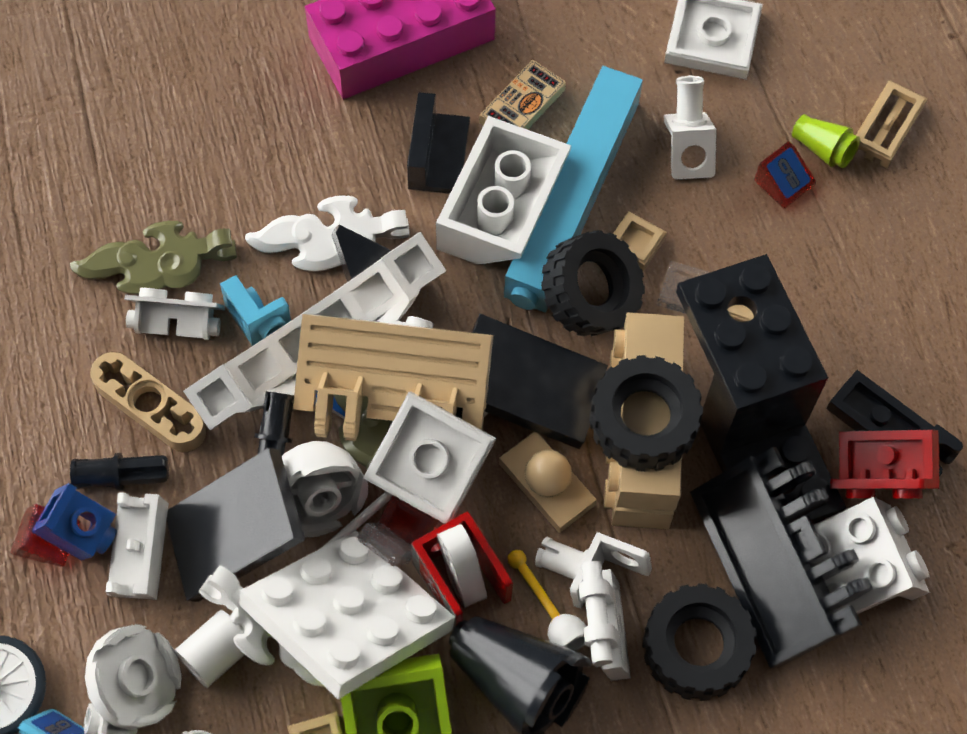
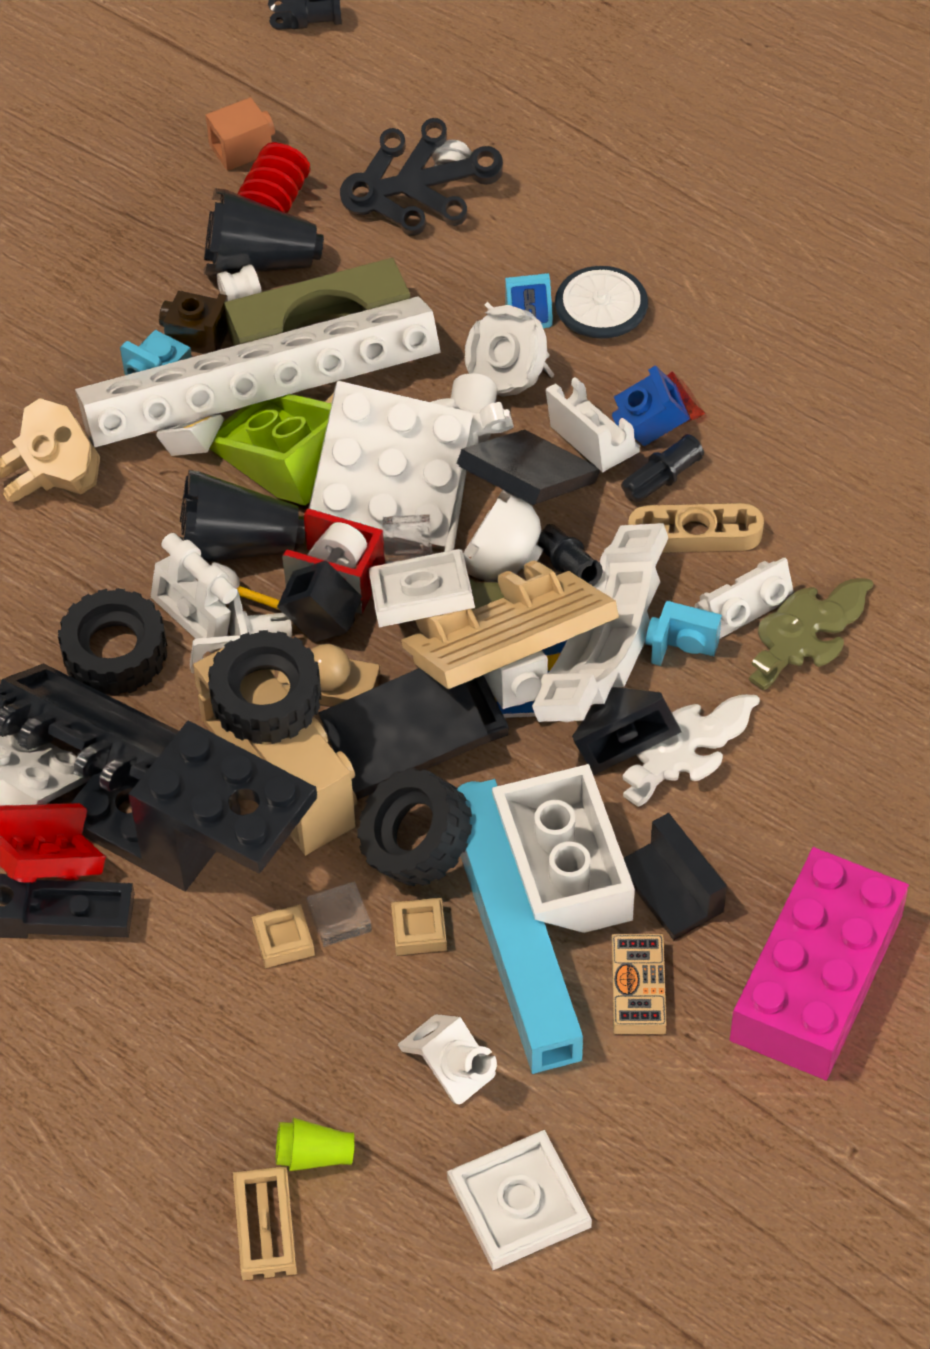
camera: 145 degrees right, 10 degrees down
(511, 533) = (320, 602): none -> black brick
(784, 175) = (327, 1084): slope -> none

